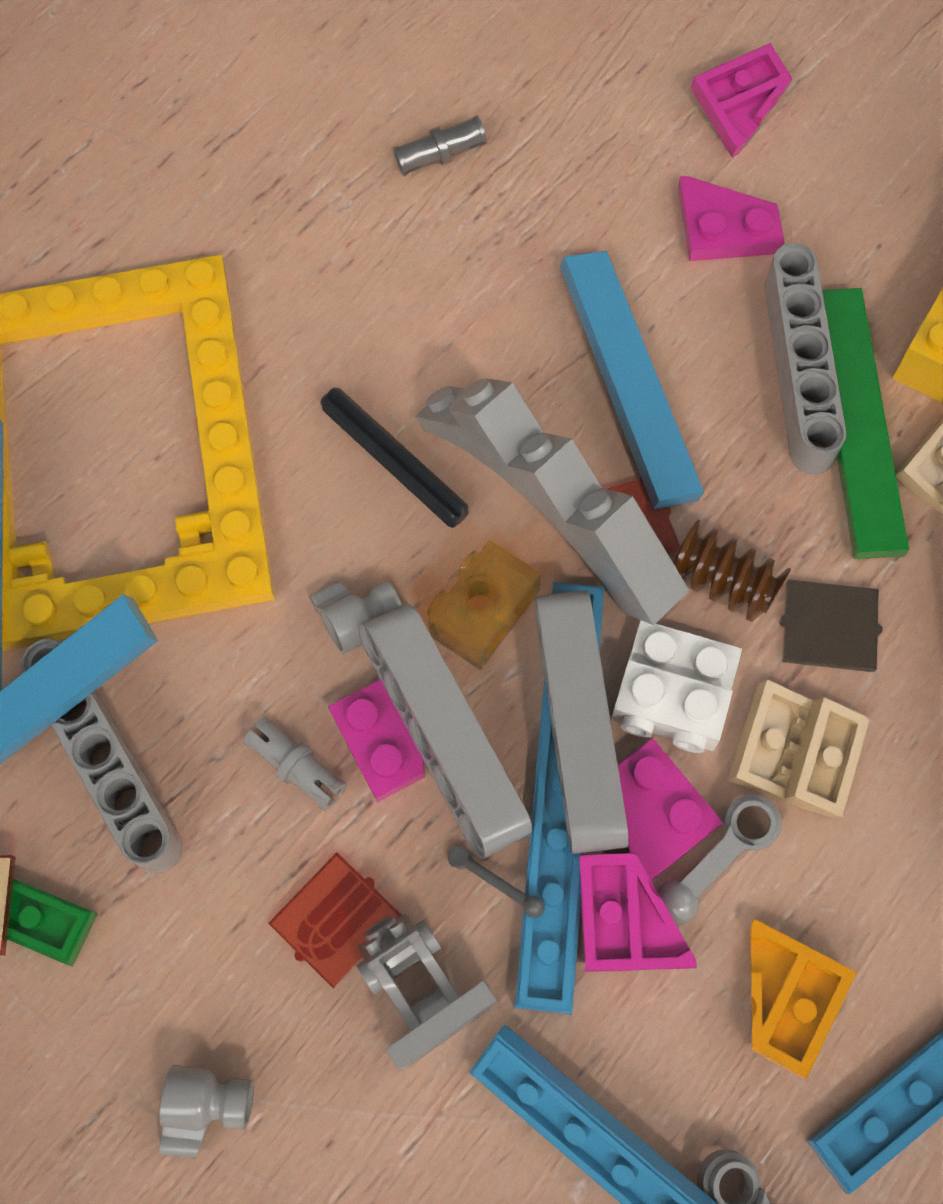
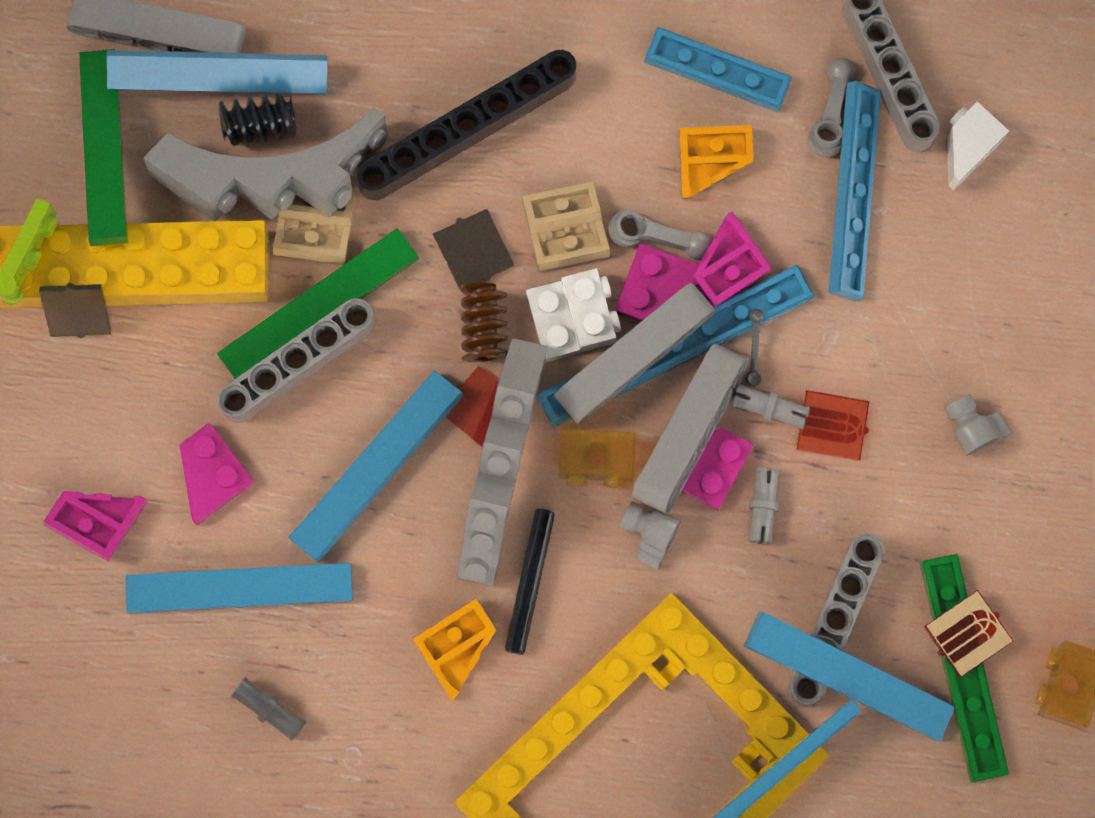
camera: 130 degrees left, 10 degrees up
(378, 342) = (456, 644): none -> light orange wing
(391, 950) = (848, 335): light grey tile -> none
(406, 851) = (771, 406): none -> light grey pin
(581, 189) = (239, 588): none -> dark azure tile

